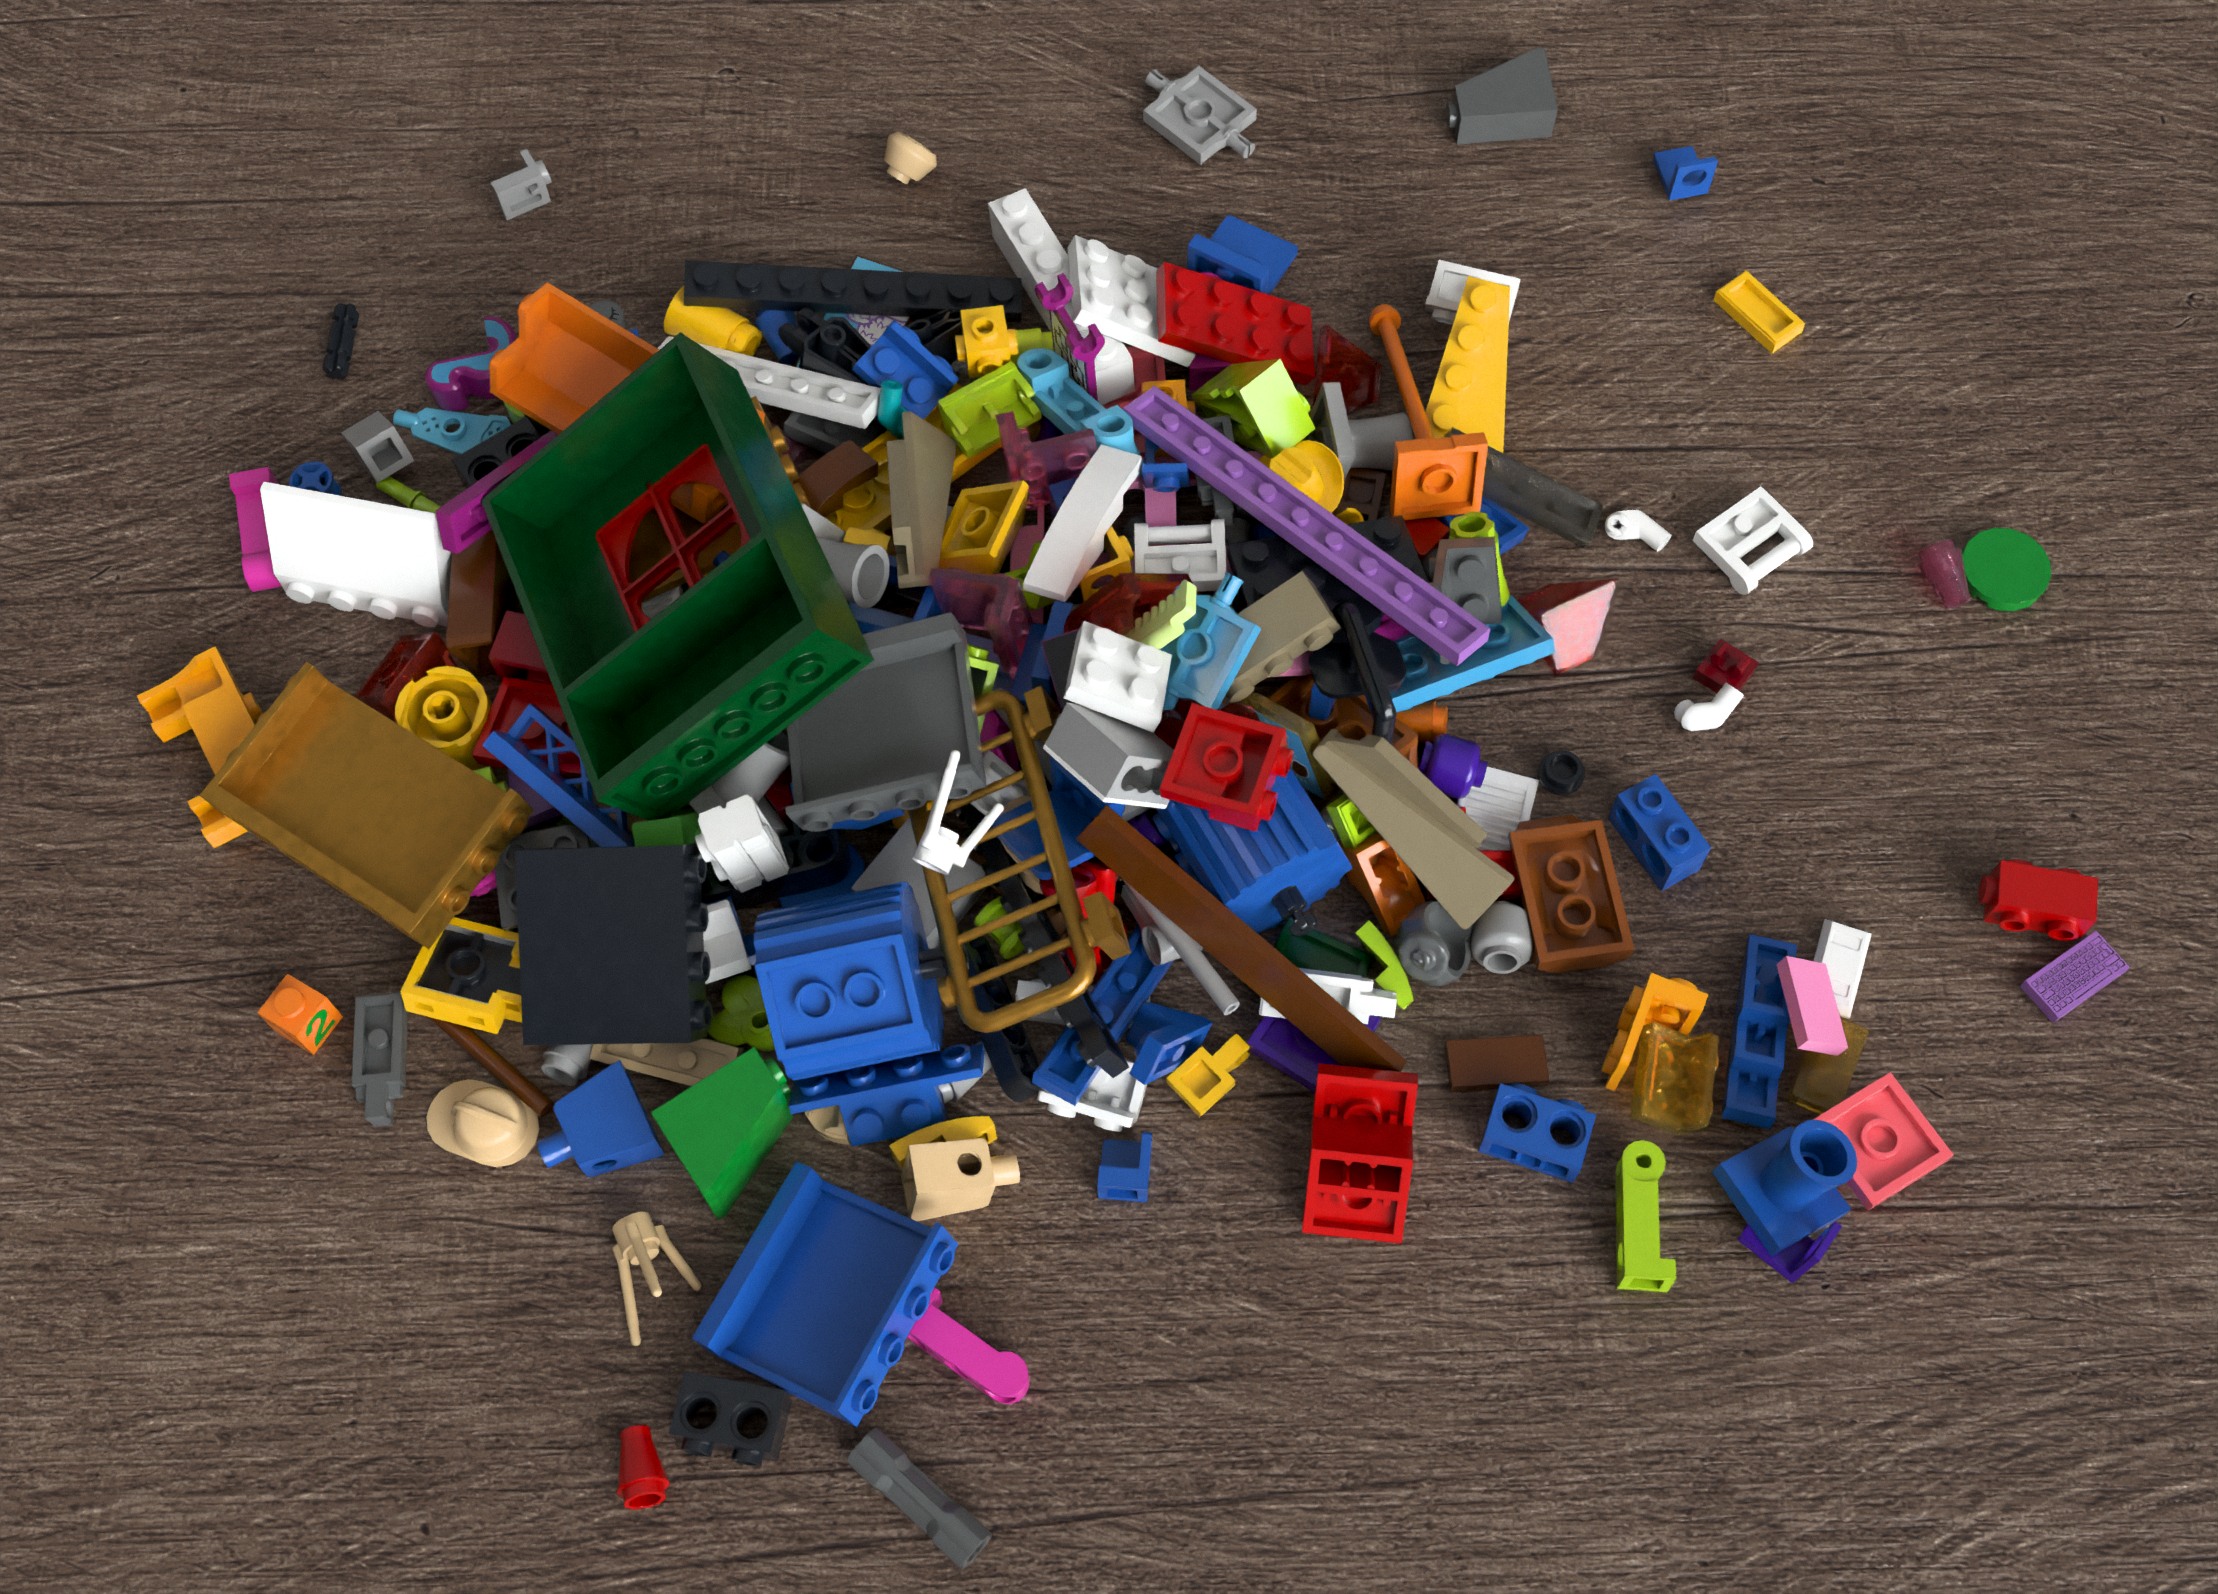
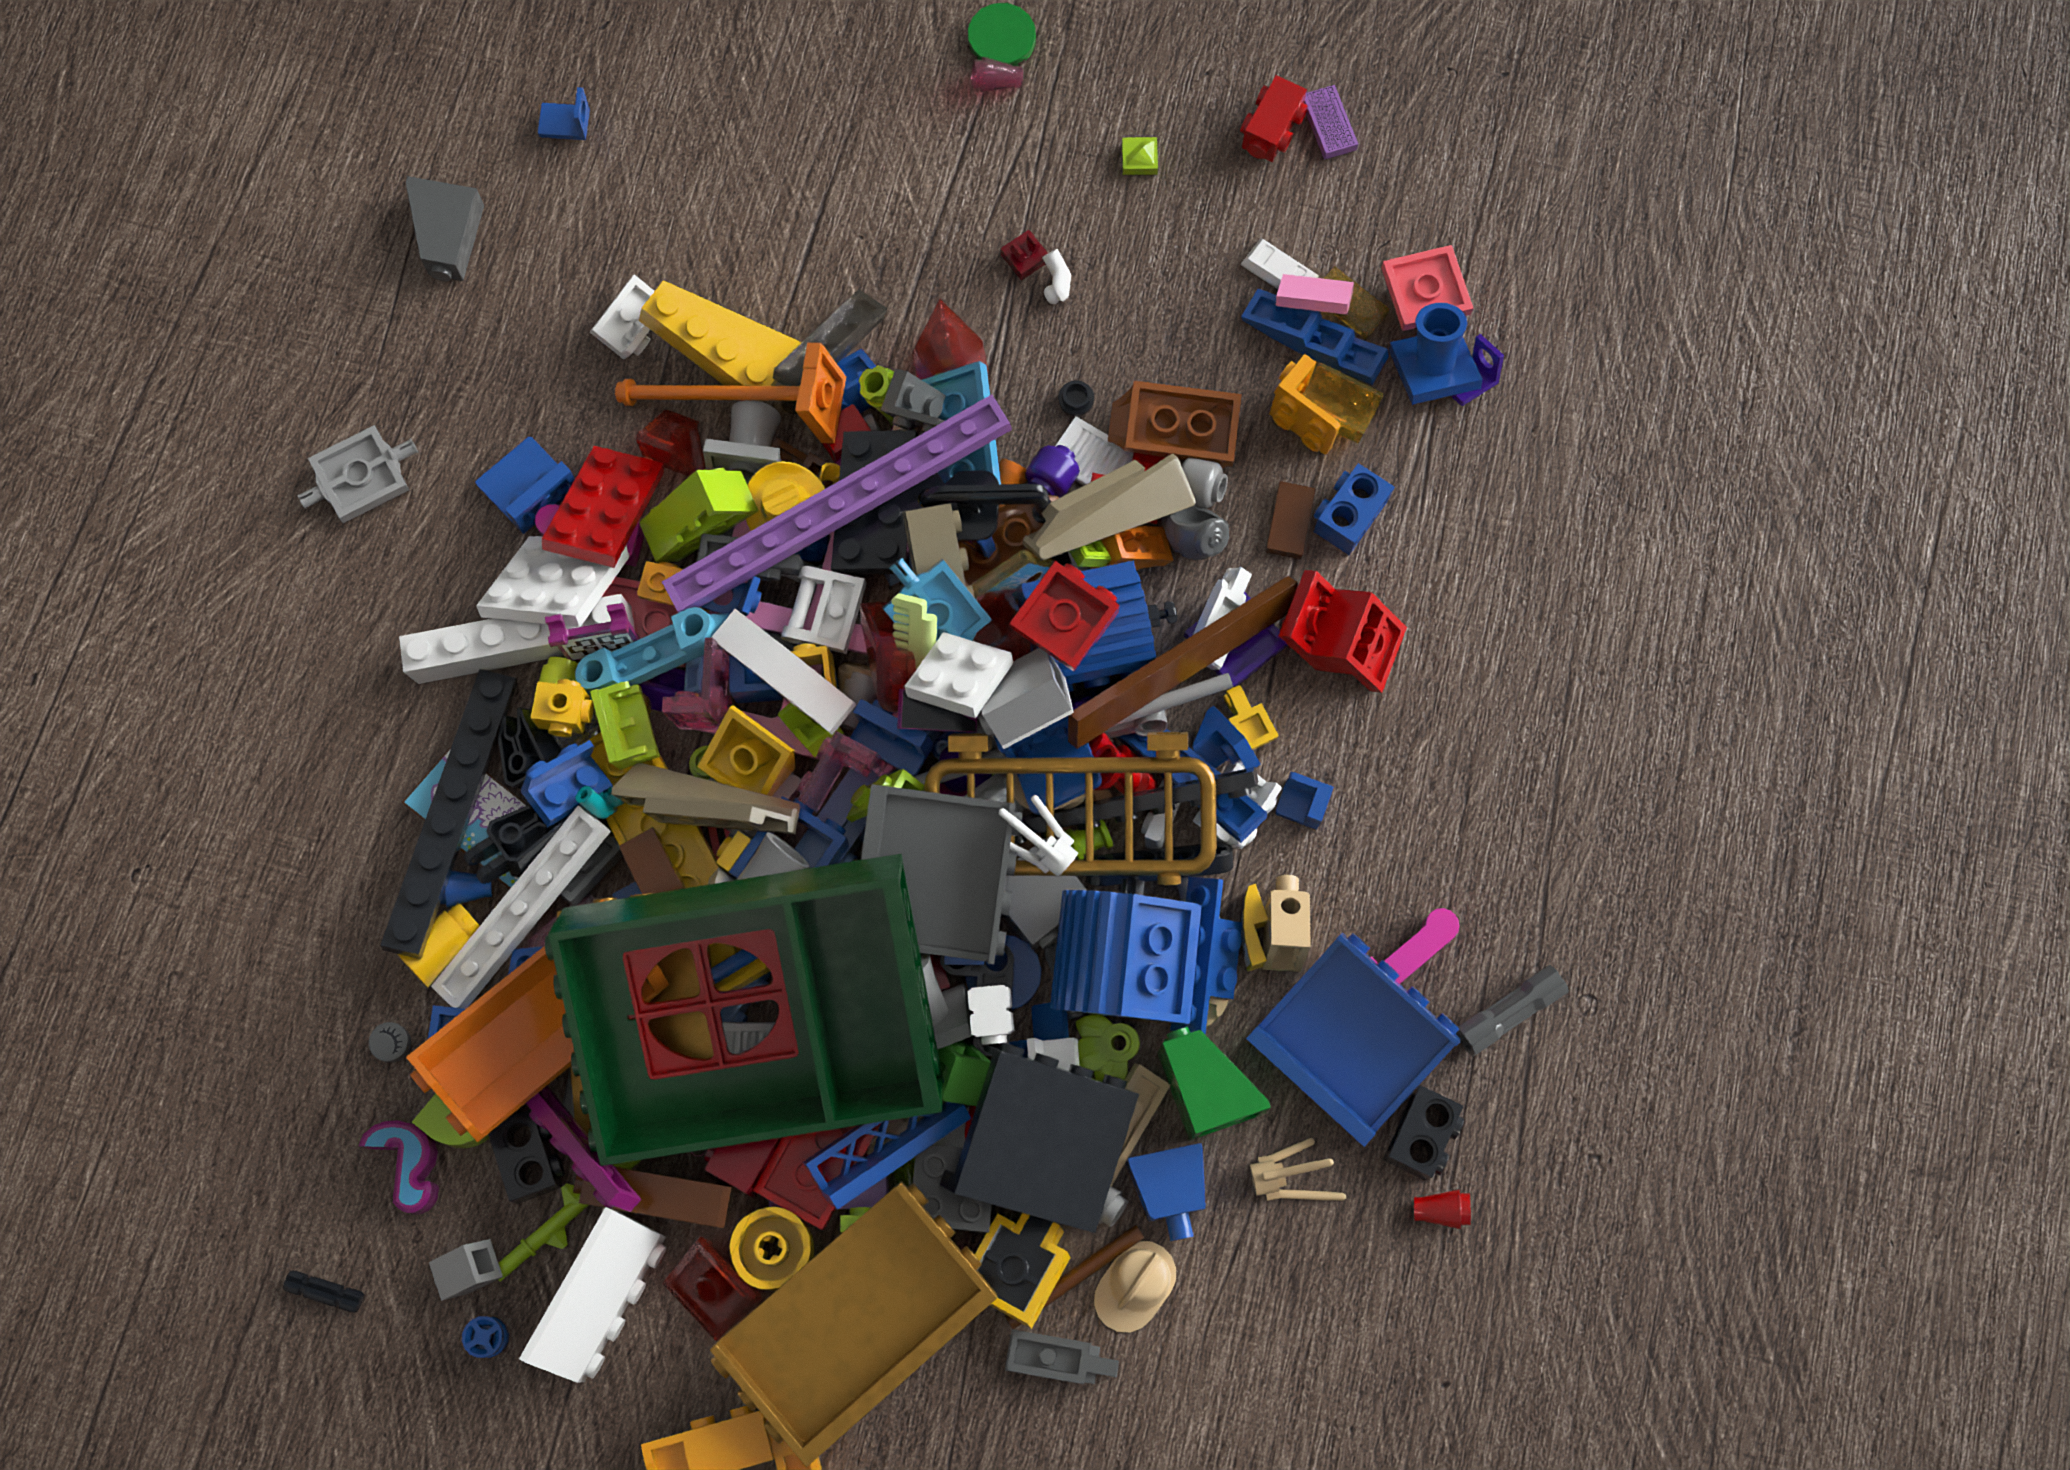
camera: 80 degrees left, 10 degrees up
(252, 527) = (514, 1393): dark pink leg -> none
(300, 1014) = (1009, 1419): orange brick -> none
(472, 428) = (474, 1189): medium azure piece -> none
(524, 188) = (215, 1088): light grey bracket -> none
(908, 158) = (313, 731): tan cone -> none
(1322, 952) = (1189, 604): dark green tile -> none
(1393, 976) = (1210, 566): lime slope -> none
(1636, 525) = (882, 270): white arm -> none
(1638, 1220) = (1430, 463): lime leg -> none
(1658, 832) = (1149, 347): blue brick -> none
(1743, 529) = (913, 199): white plate -> none
(1759, 311) = (716, 114): yellow tile -> none
(1917, 762) = (1139, 156): none -> lime tile

